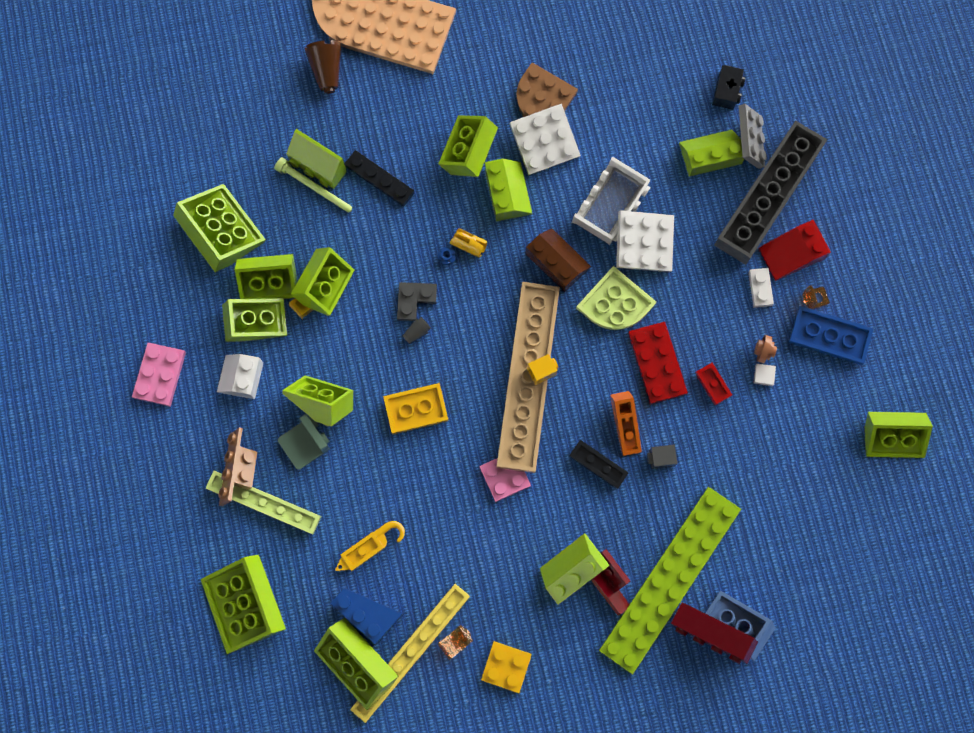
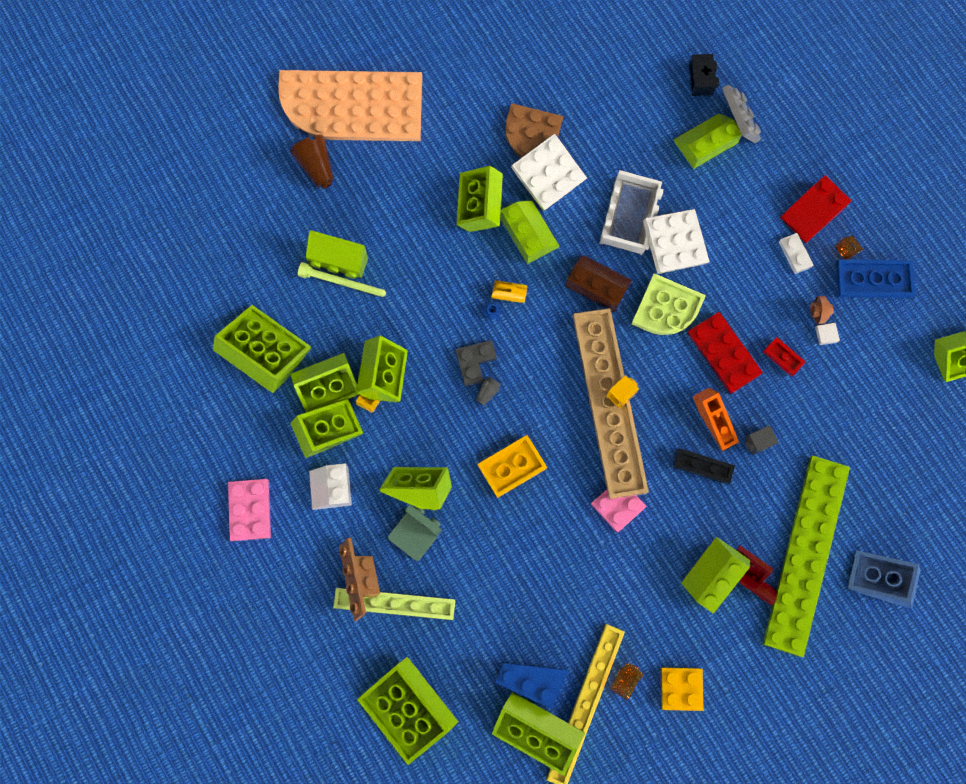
camera: 20 degrees left, 0 degrees up
(368, 547) = (511, 615): yellow plate -> none
(379, 178) = (402, 255): black plate -> none
(714, 633) = (869, 593): dark red brick -> none
(770, 192) = (776, 162): dark grey brick -> none

